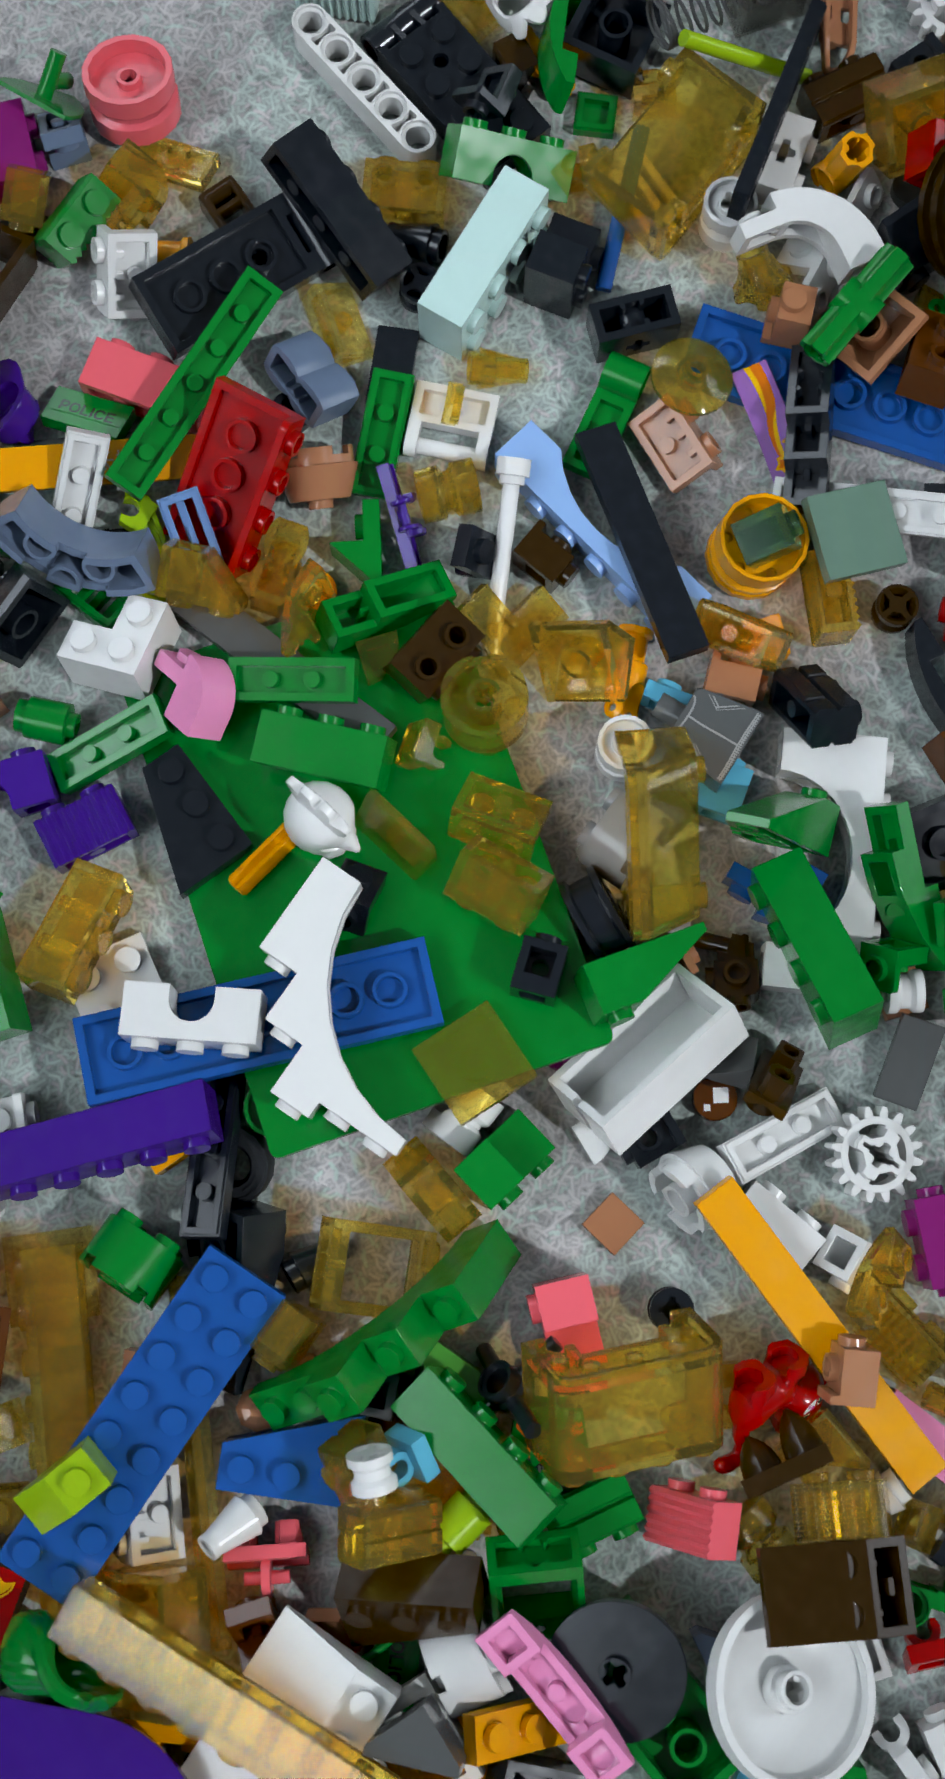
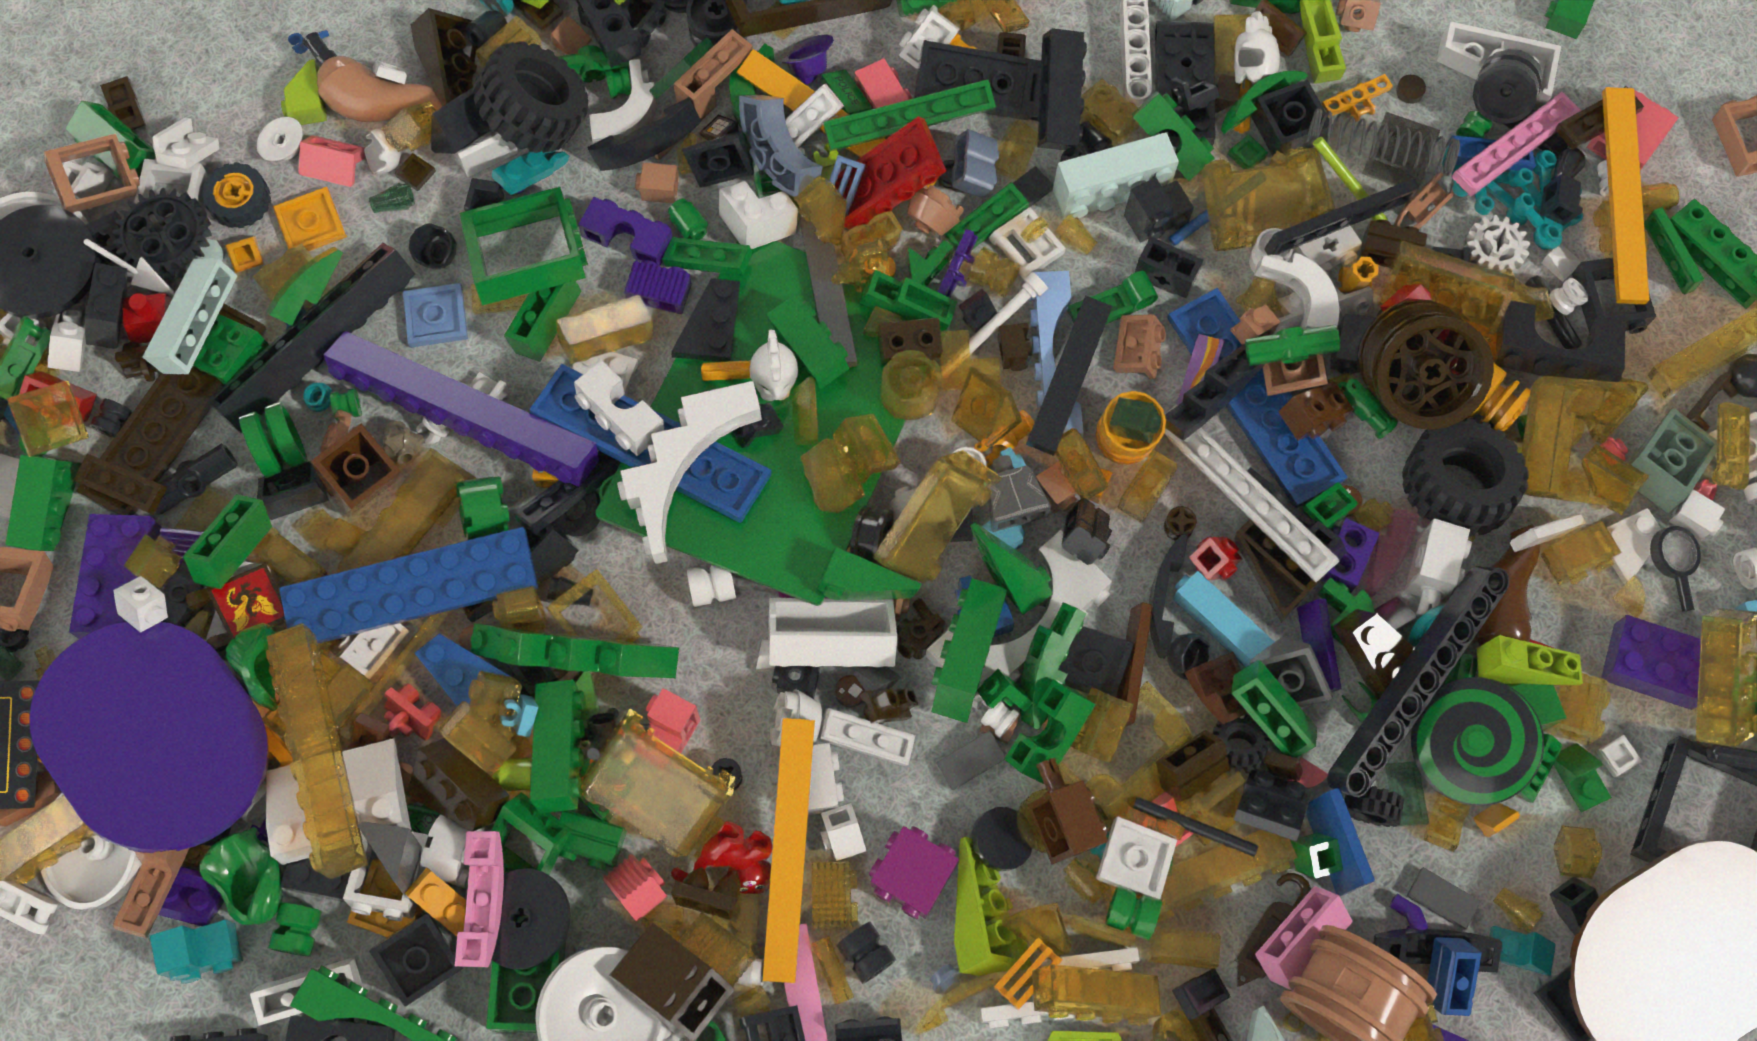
camera: 40 degrees right, 10 degrees down
(66, 1486) = (345, 577): lime slope -> none
(202, 693) = (772, 265): bright pink brick -> none
(235, 1525) = (407, 679): white cone -> none
(295, 680) = (825, 295): green plate -> none
(372, 1470) = (495, 697): white wheel -> none
(419, 744) = (859, 379): clear yellow tile -> none
(432, 1189) = (660, 607): clear yellow brick -> none
(474, 1063) = (737, 554): clear yellow tile -> none
(505, 1160) = (709, 623): green brick -> none
(534, 950) = (813, 524): black brick -> none
(613, 1223) = (738, 707): nougat tile -> none
(682, 387) = (1170, 326): clear yellow dish -> none
(850, 1372) = (784, 875): nougat brick -> none
(854, 531) = (1186, 458): sand green tile -> none
(880, 1269) = (850, 845): clear yellow slope -> none
(885, 1141) = (920, 785): white gear -> none

